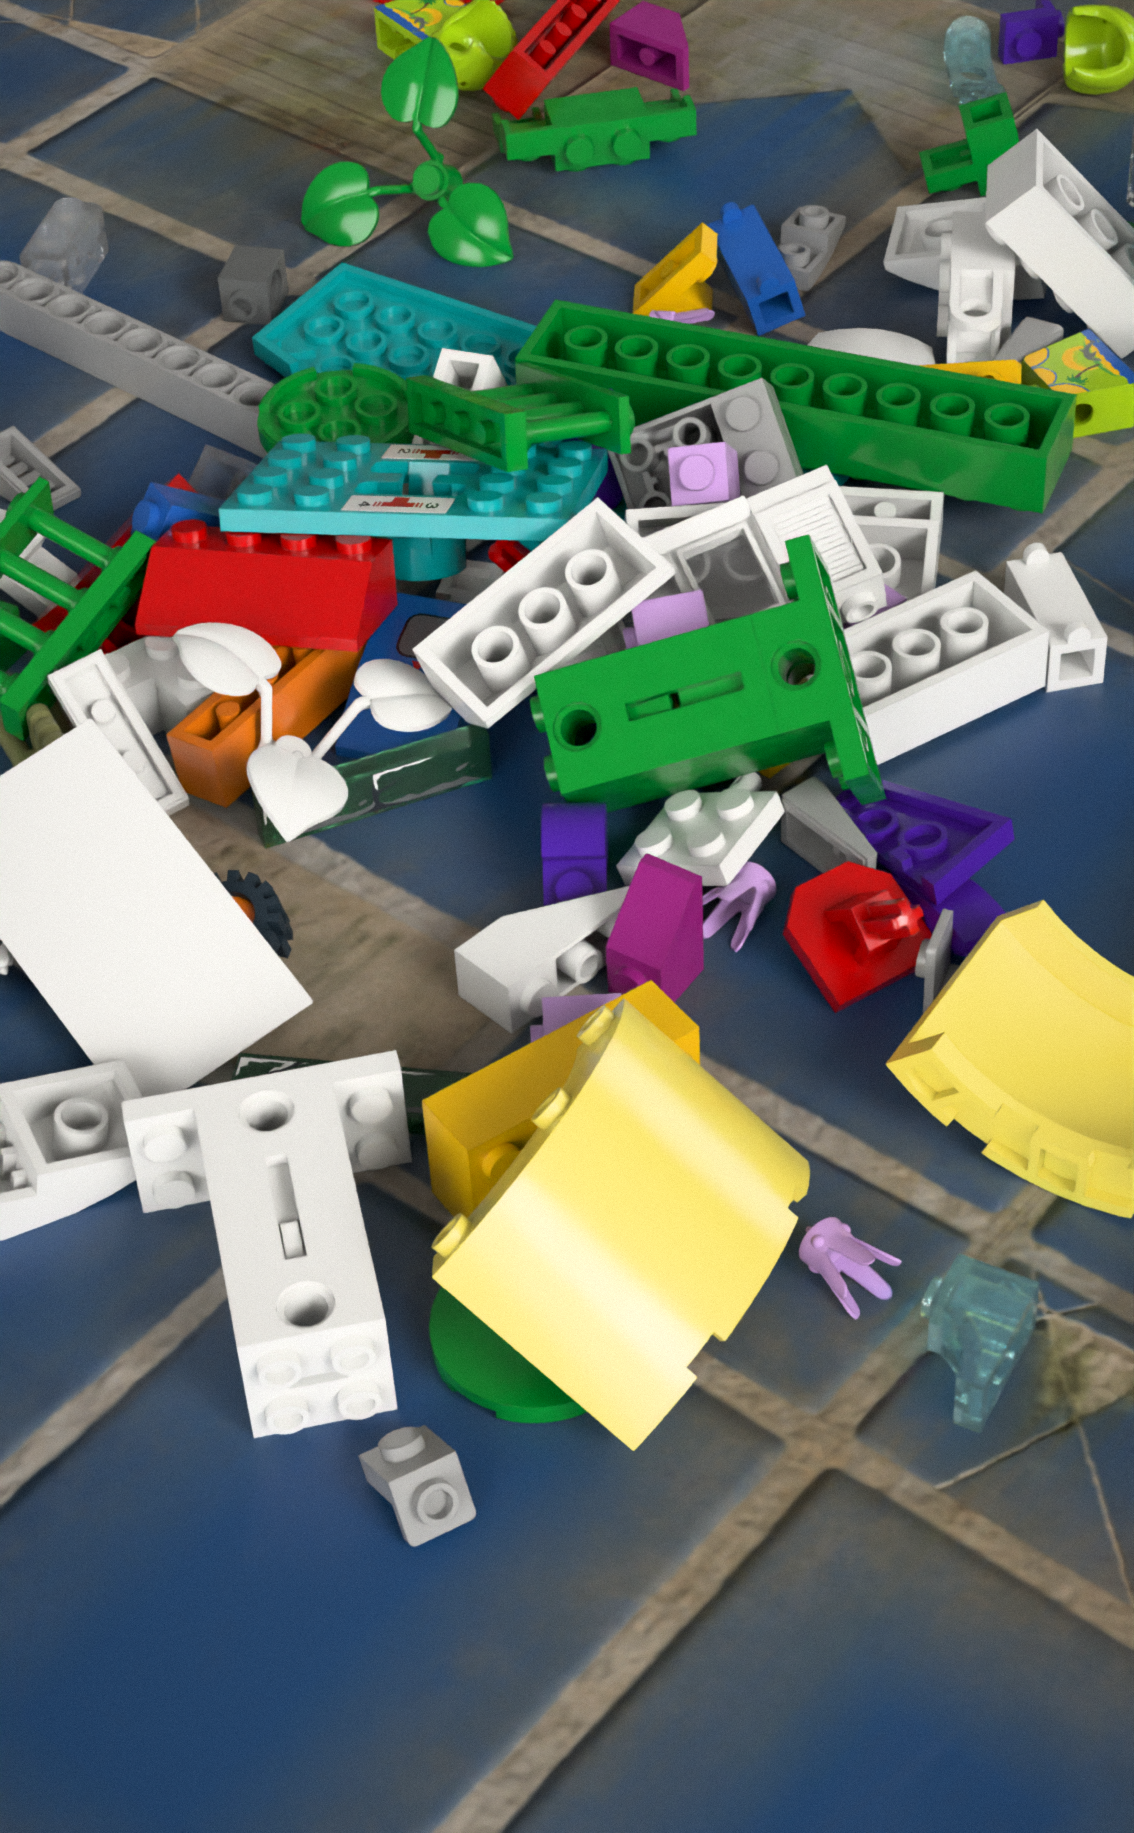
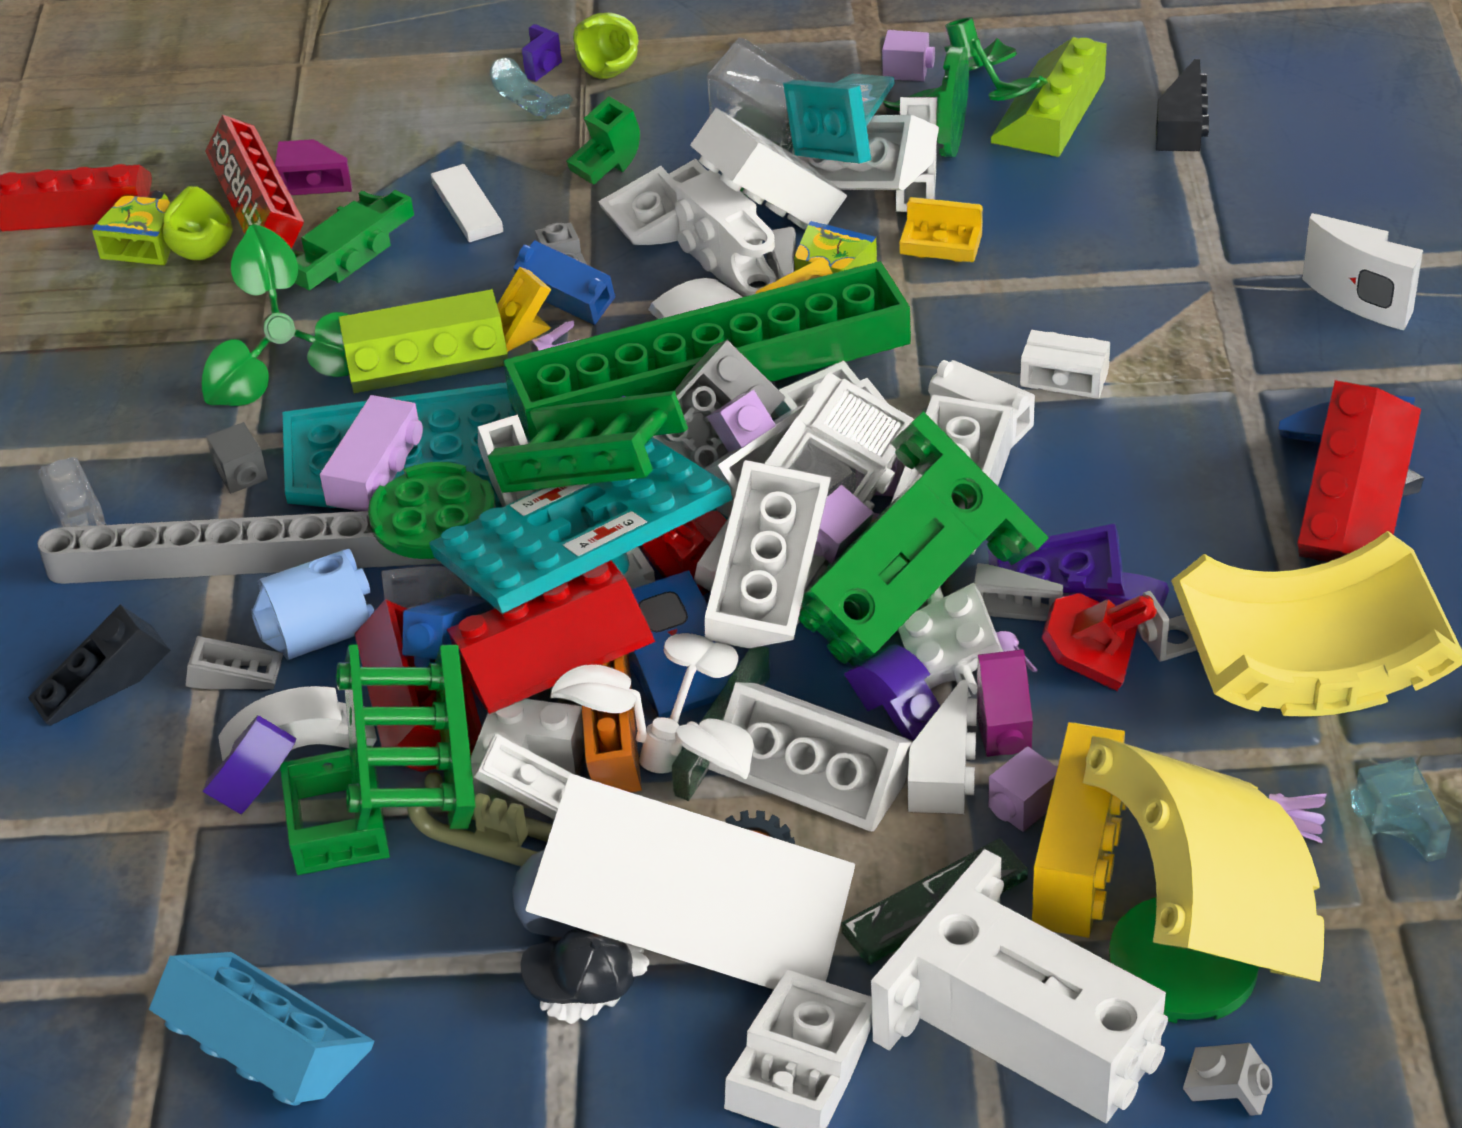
camera: 40 degrees left, 0 degrees up
(123, 442) = (312, 605): none -> light blue cylinder
(367, 327) = (370, 452): none -> lavender brick
(414, 866) = (818, 756): none -> white slope
(539, 254) = (423, 341): none -> lime slope
(774, 152) = (467, 203): none -> white tile

